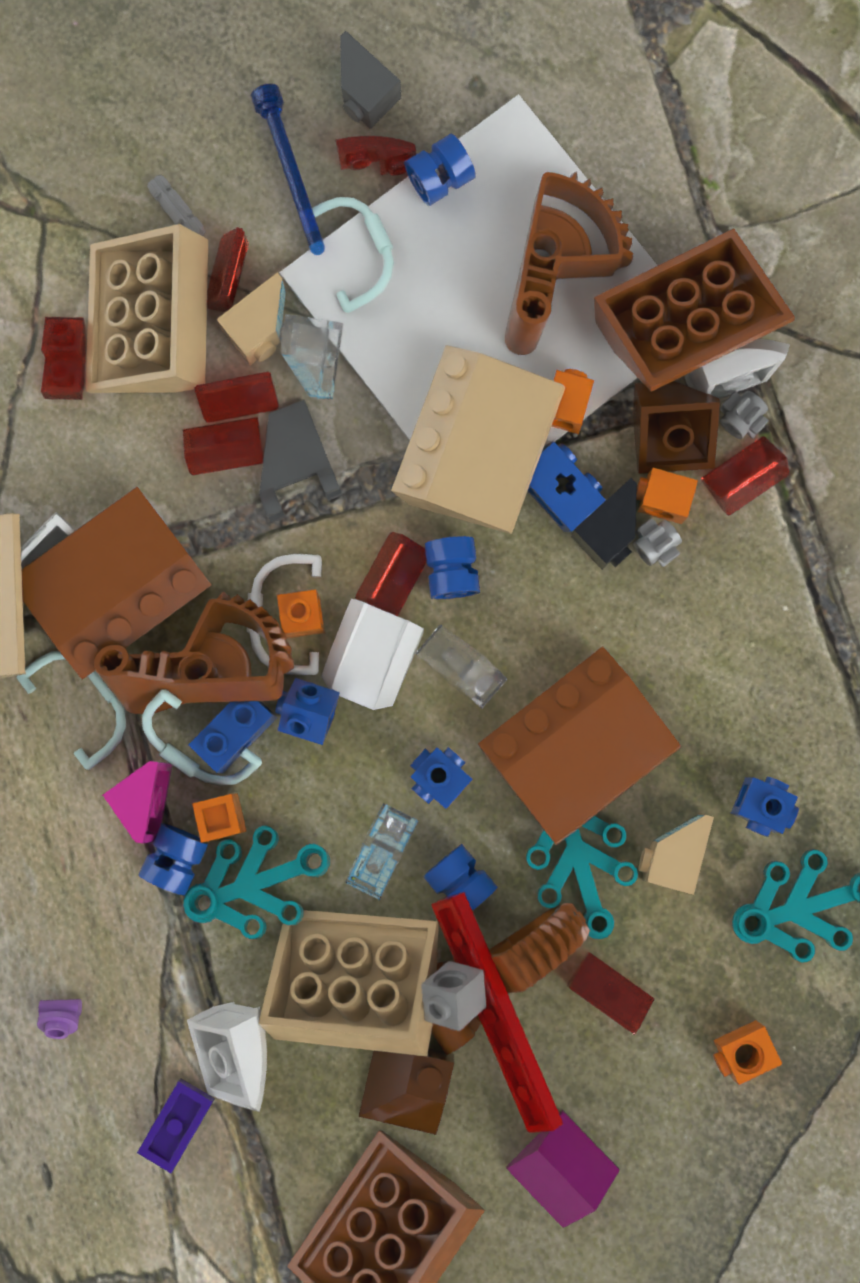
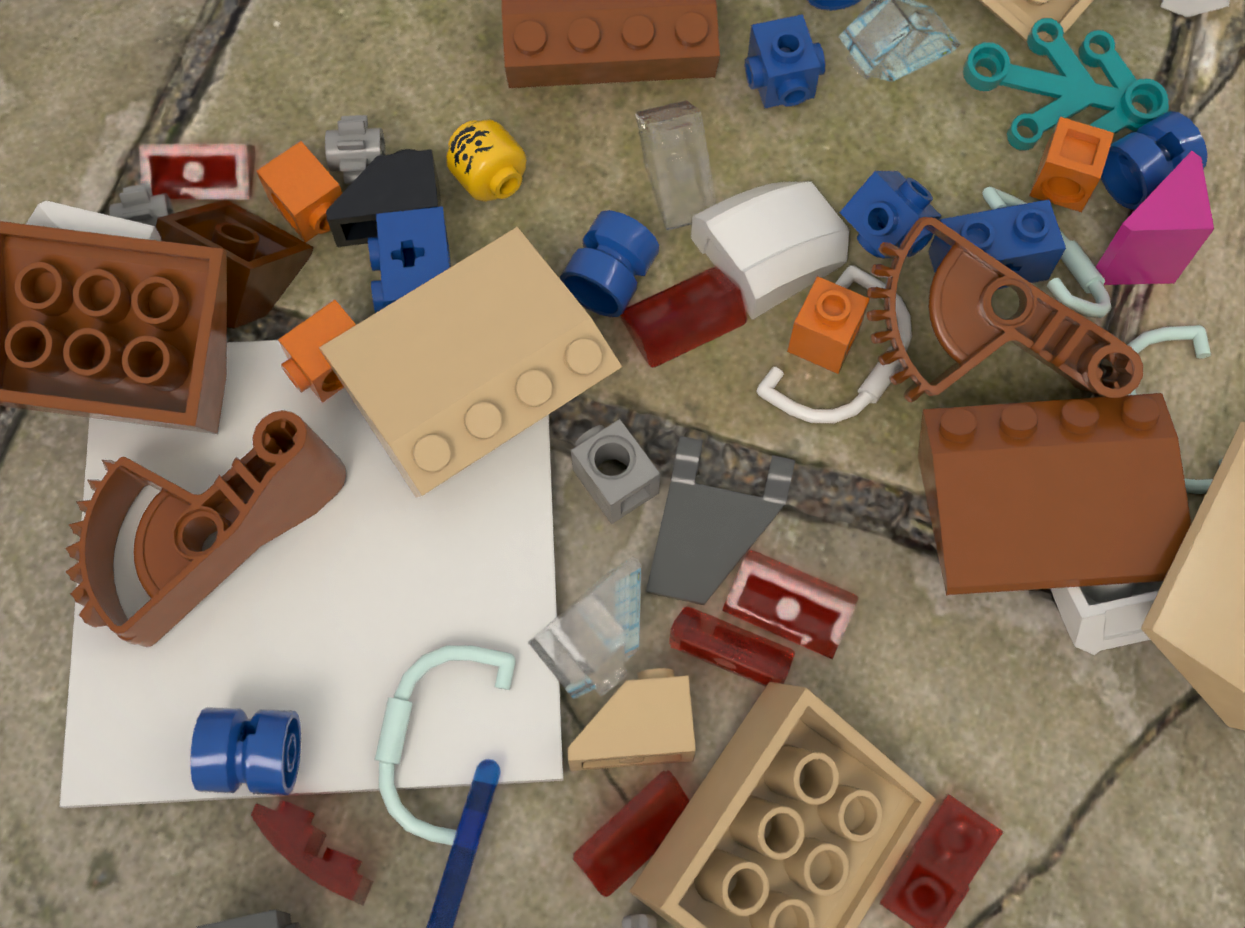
camera: 150 degrees left, 15 degrees down
(352, 436) = (617, 493): none -> light grey brick
(573, 587) = (486, 160): none -> yellow head

